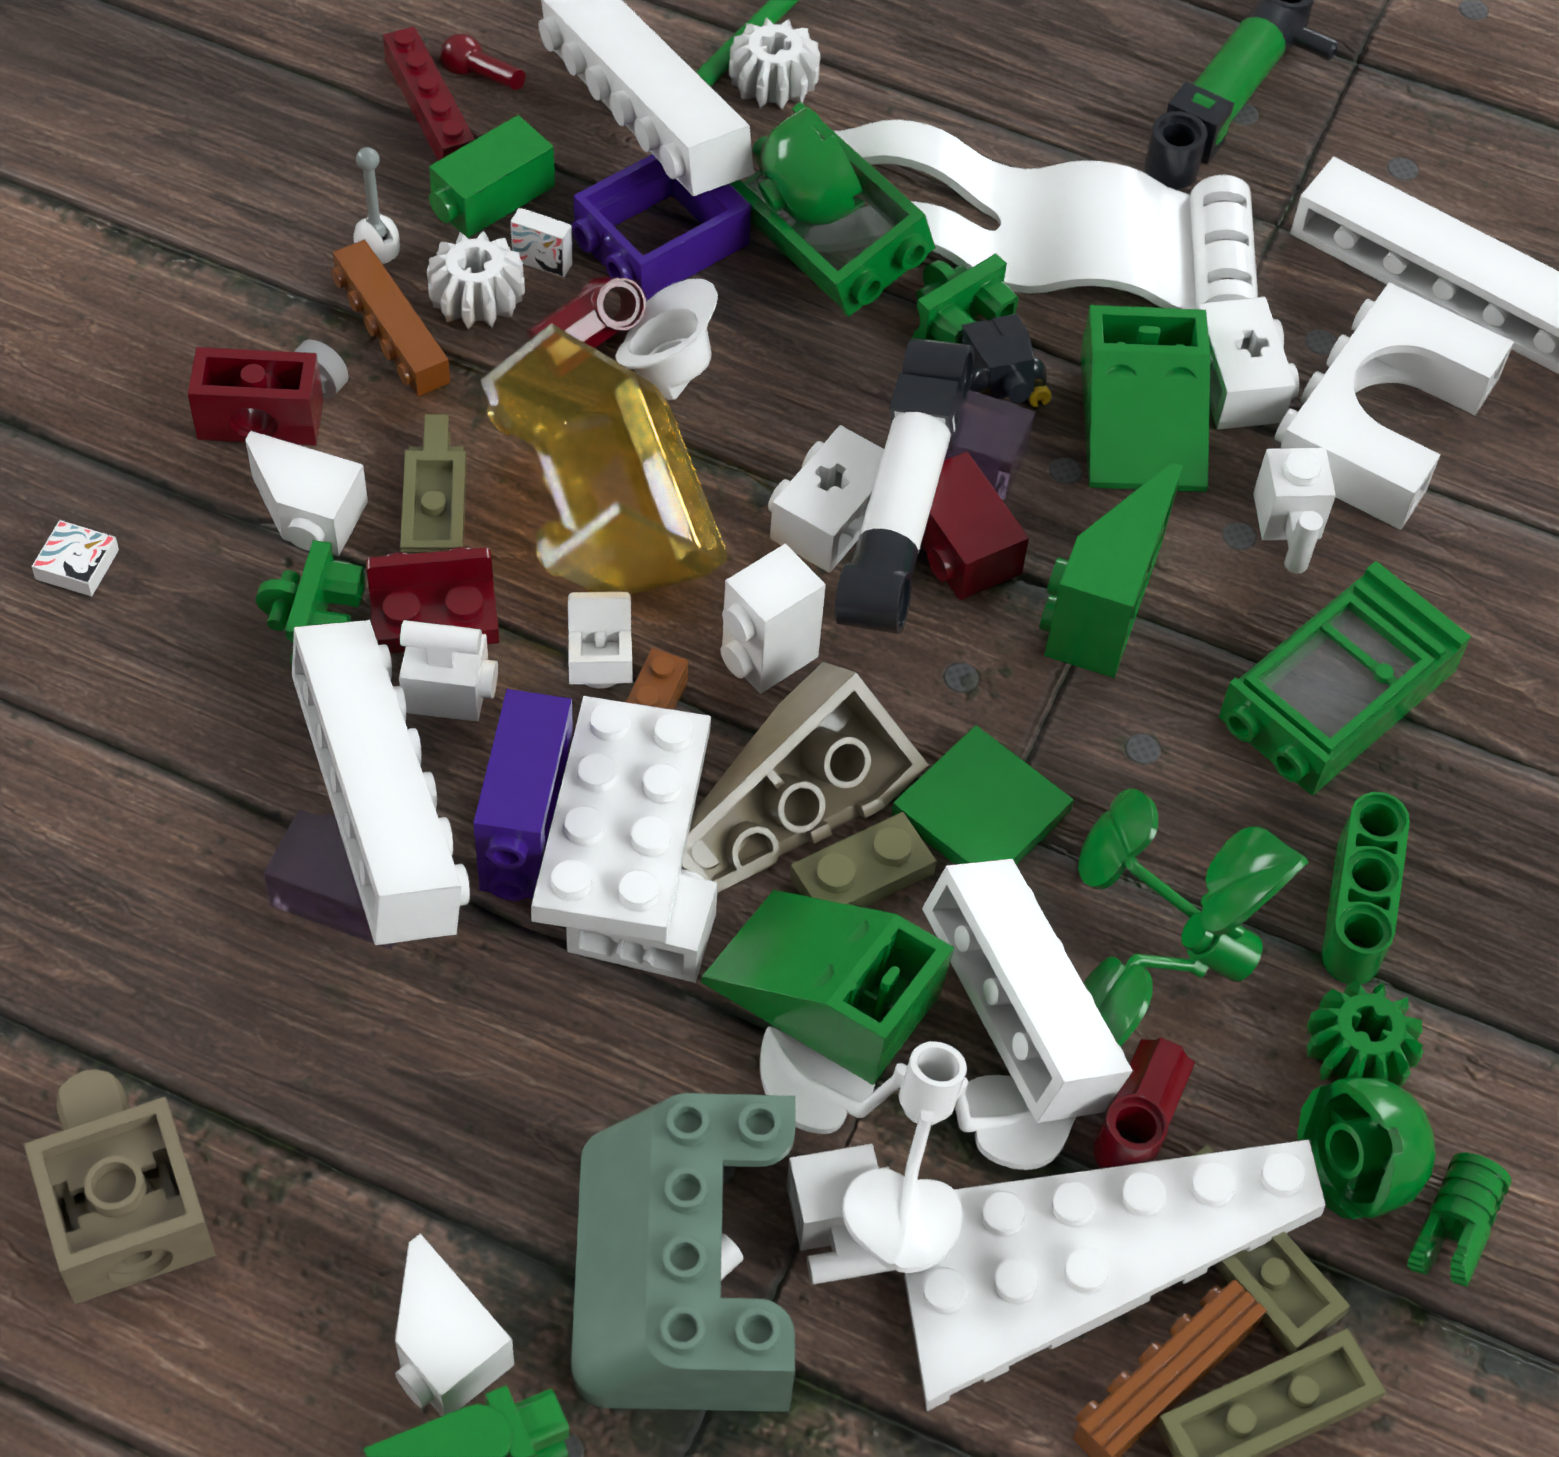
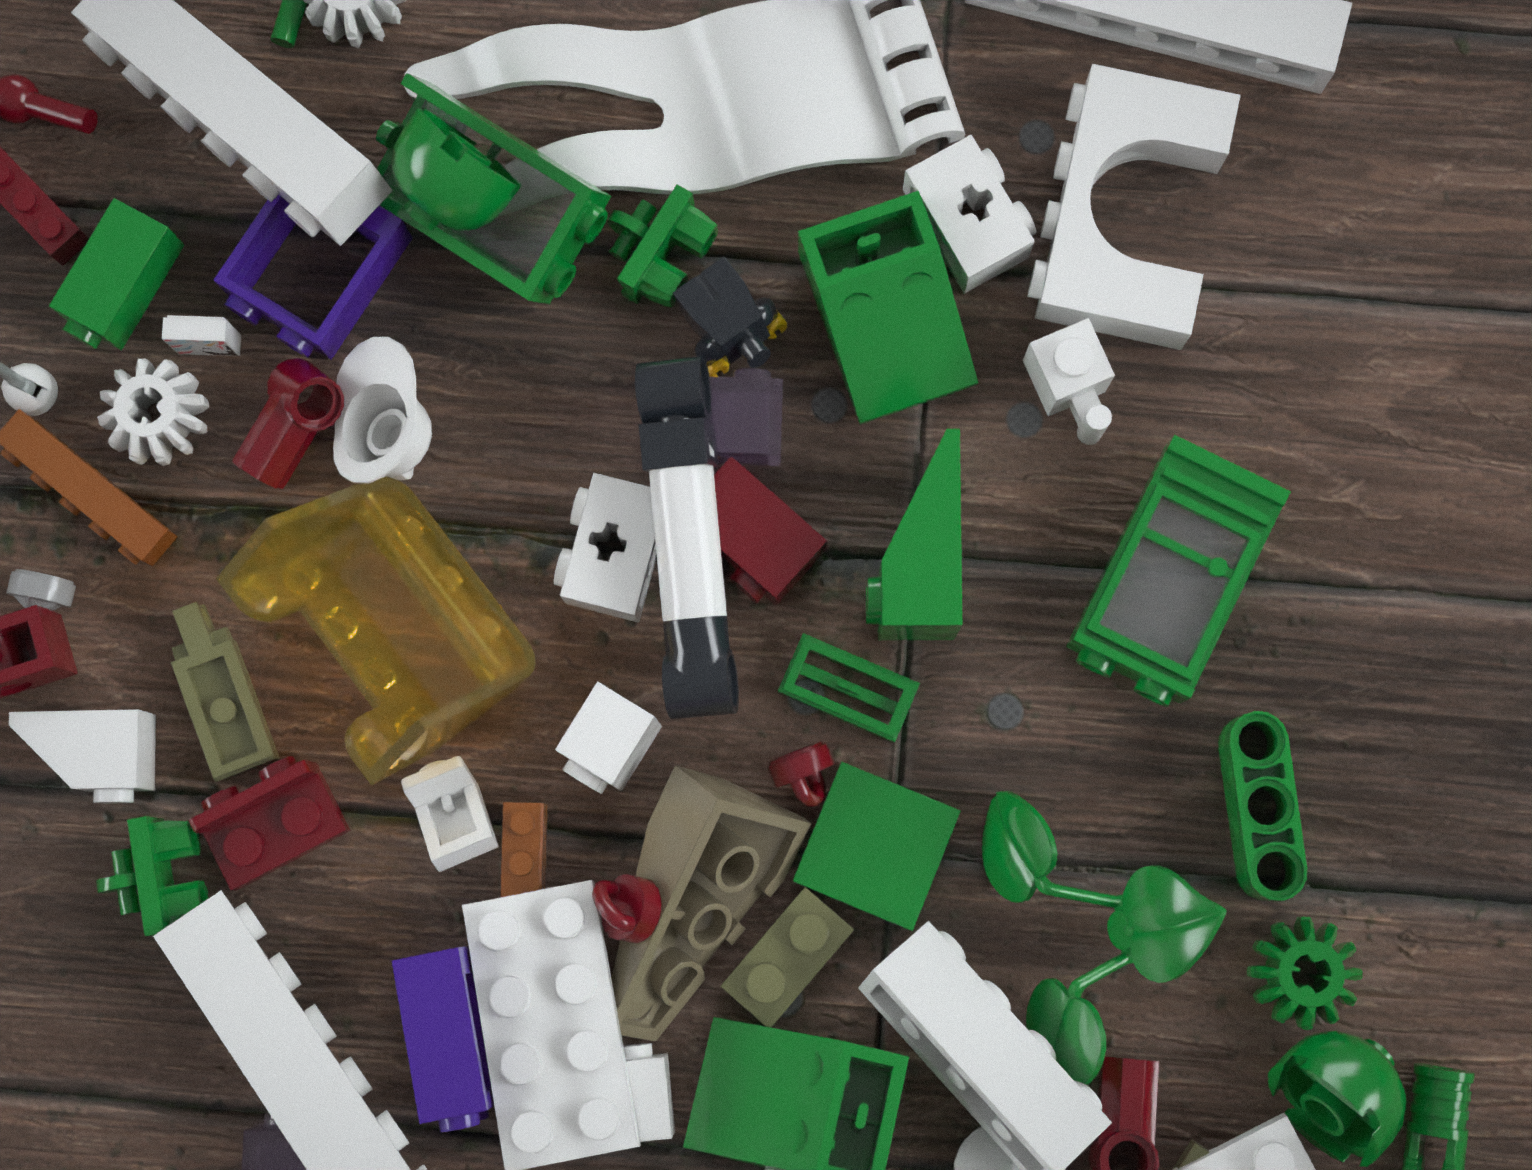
camera: 10 degrees left, 25 degrees up
(446, 670) = (315, 904): white brick -> none
(734, 749) = (628, 907): none -> dark red tile
(938, 715) = (799, 764): none -> dark red tile
(996, 684) = (896, 709): none -> green tile

